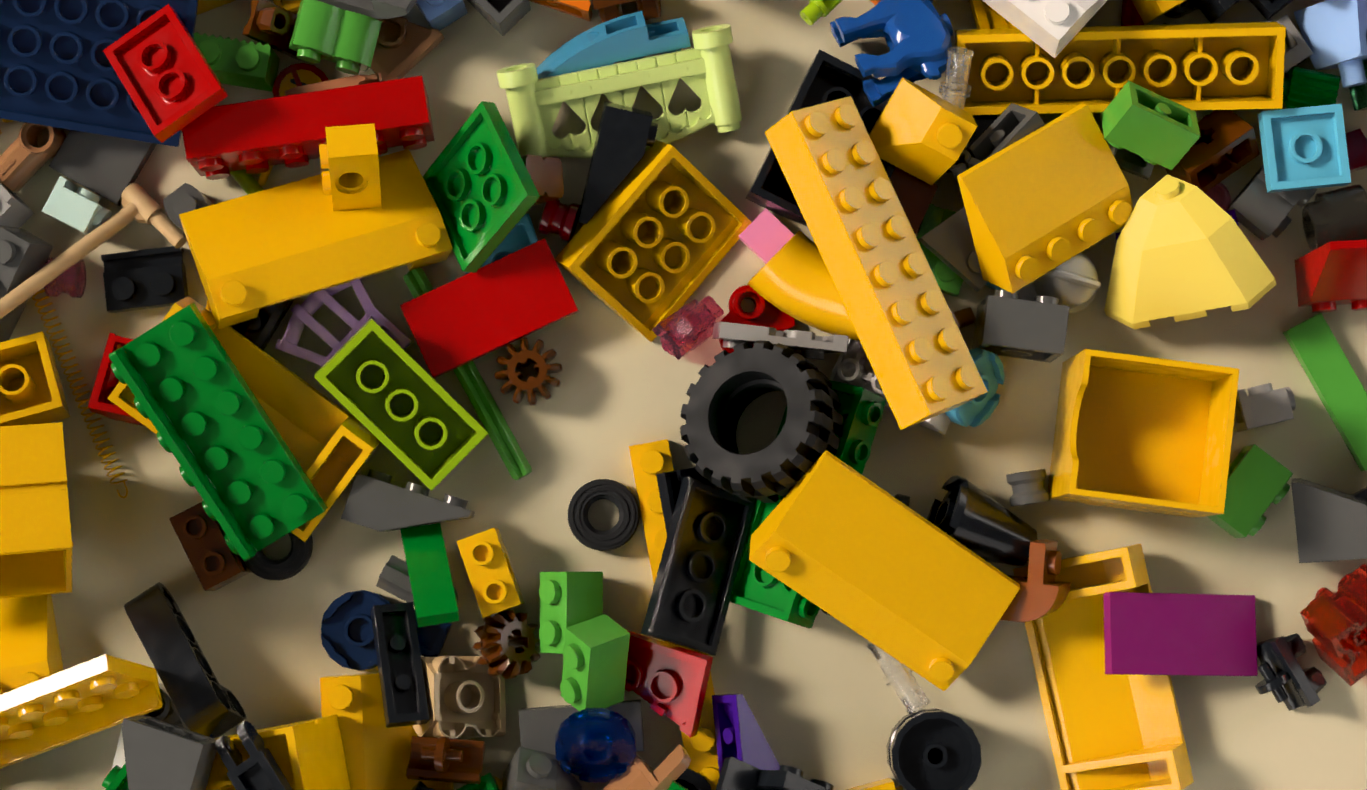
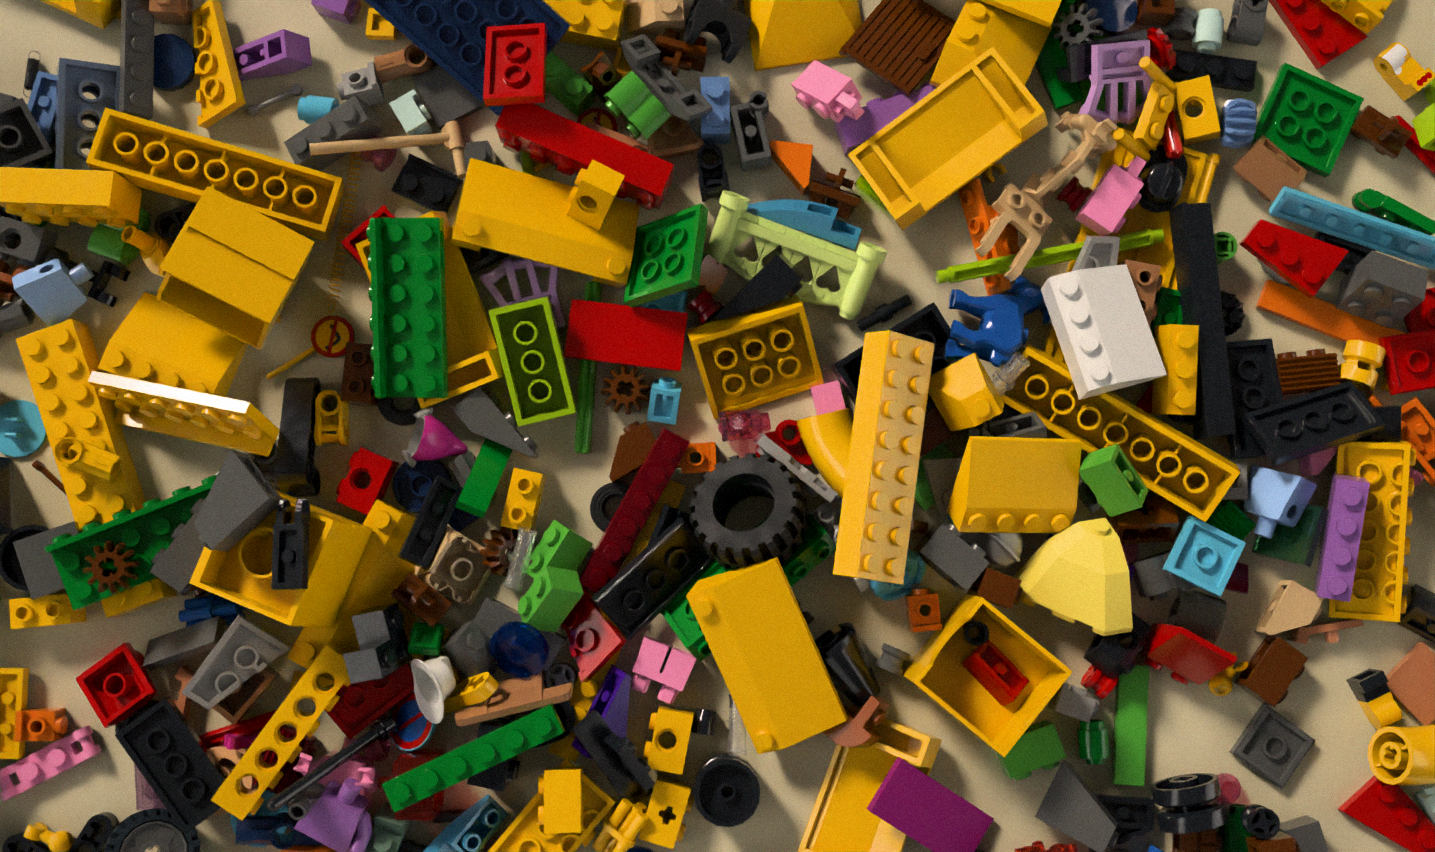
camera: 30 degrees right, 0 degrees up
(142, 528) = (327, 338): none -> piece
(207, 622) = (331, 421): none -> yellow piece
(304, 644) = (381, 472): none -> red brick
(339, 570) = (431, 440): none -> dark pink hat
(475, 65) = (711, 178): none -> black piece
(531, 640) = (520, 559): none -> clear pin
(581, 356) = (664, 400): none -> medium azure bracket
(583, 434) = (631, 450): none -> reddish brown slope
(626, 502) = (634, 510): none -> dark red plate
(657, 737) = (560, 678): none -> dark grey wheel
(675, 394) = (707, 461): none -> orange brick
(769, 98) = (884, 313): none -> black bar
(790, 660) = (650, 662): none -> bright pink hips
(849, 757) = (663, 757): none -> yellow brick
(858, 695) = (704, 722): none -> black hose
(1027, 426) = (918, 622): none -> orange brick
(1096, 330) = (997, 588): none -> reddish brown brick
(1113, 396) = (982, 636): none -> black hose
(1153, 427) = (995, 672): none -> red slope
(1275, 319) = (1116, 653): none -> black brick
(1275, 363) = (1098, 682): none -> red wheel
(1312, 437) = (1093, 741): none -> green brick

